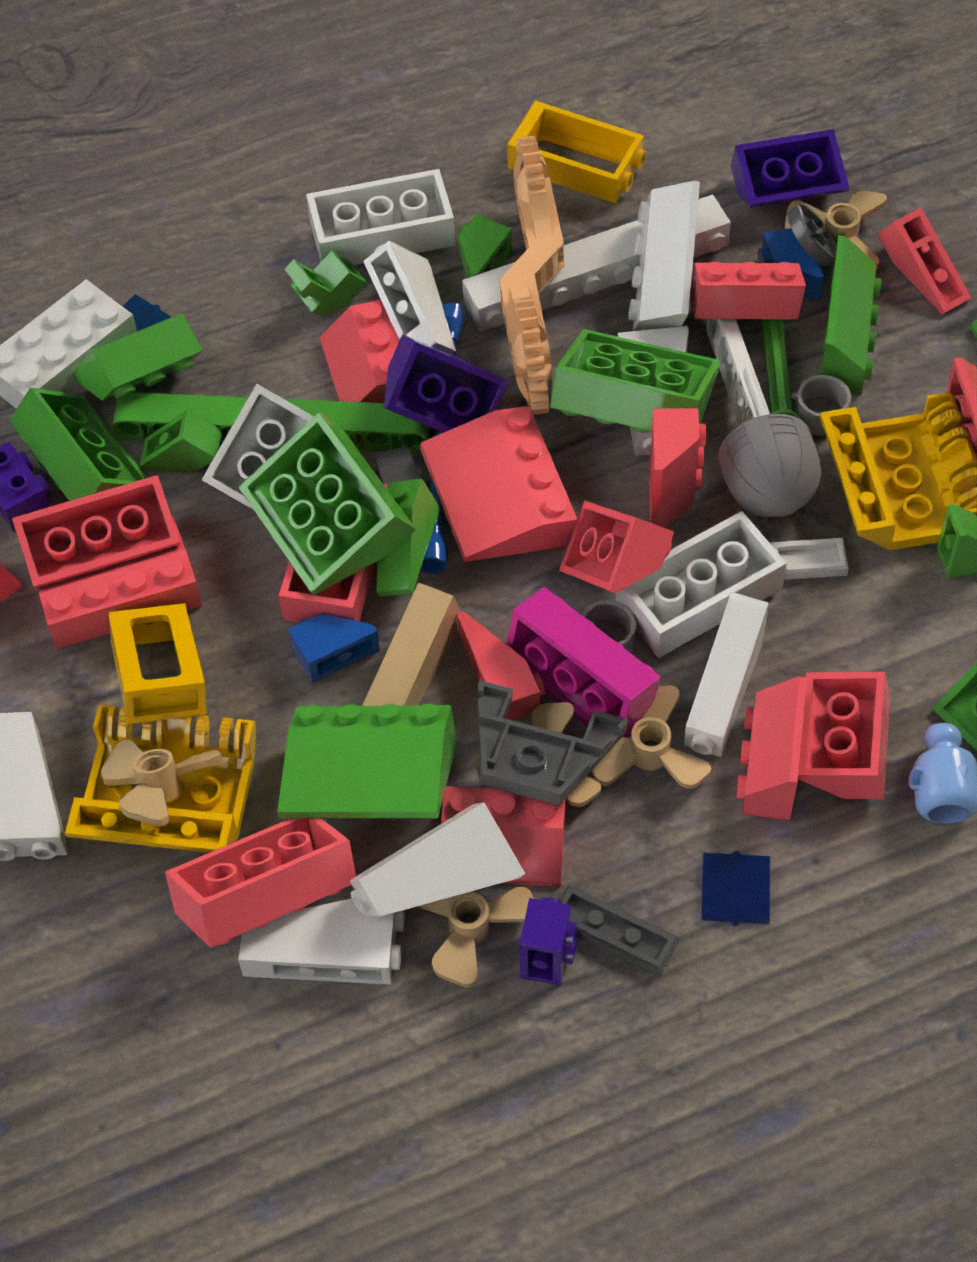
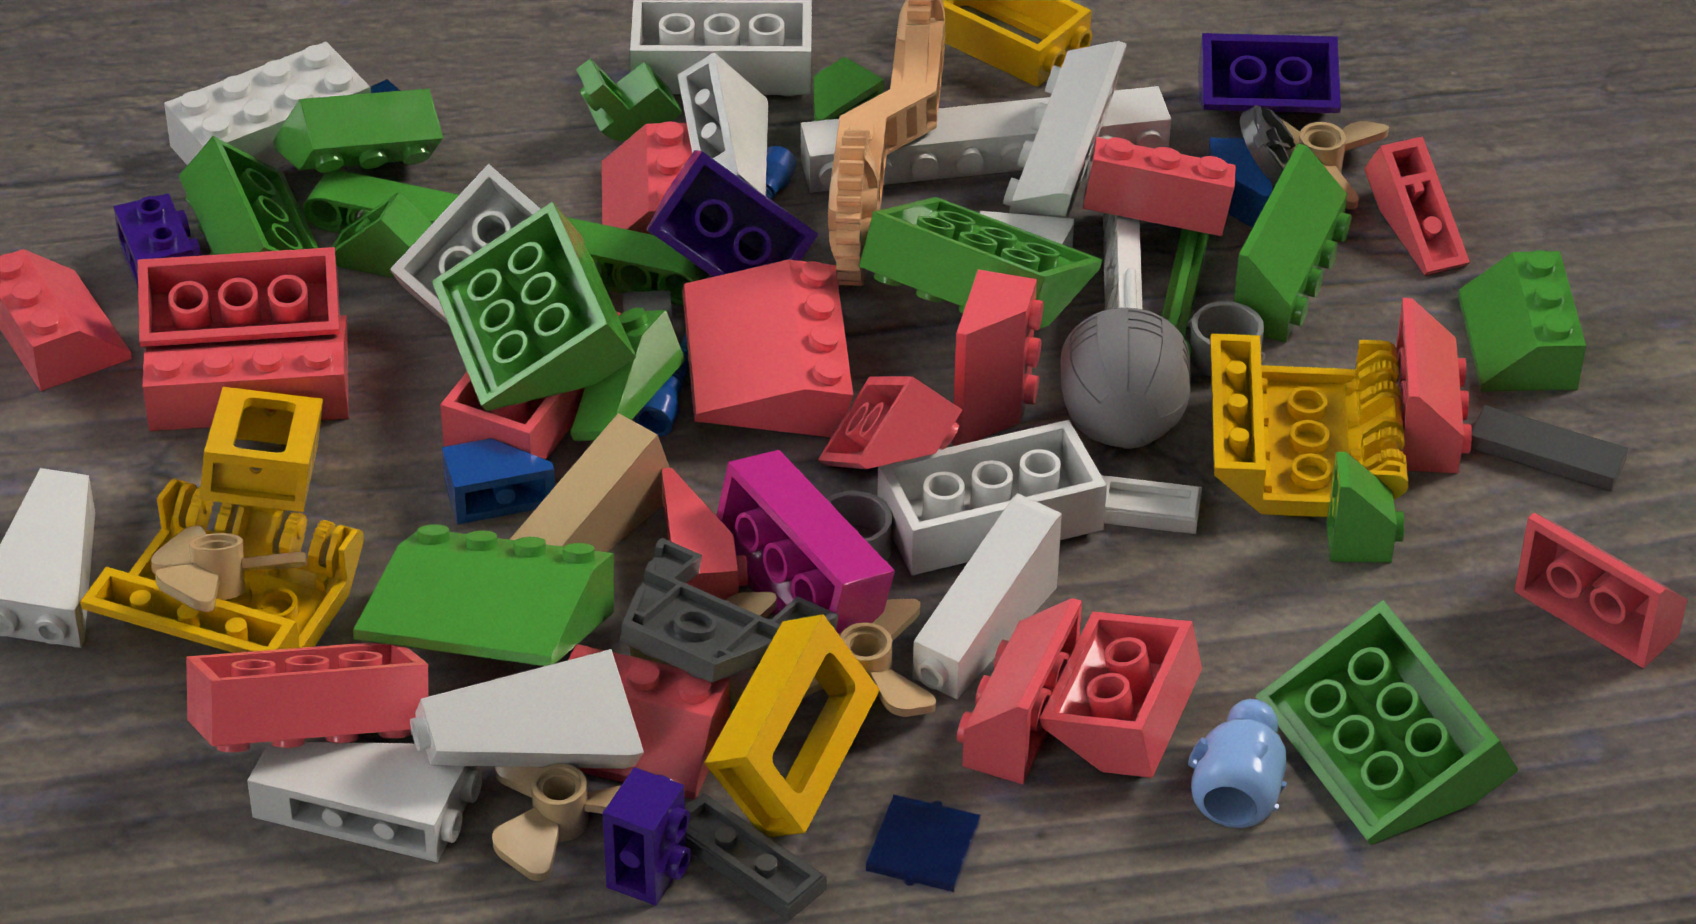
camera: 10 degrees right, 15 degrees down
(624, 823) = (747, 742): none -> yellow piece

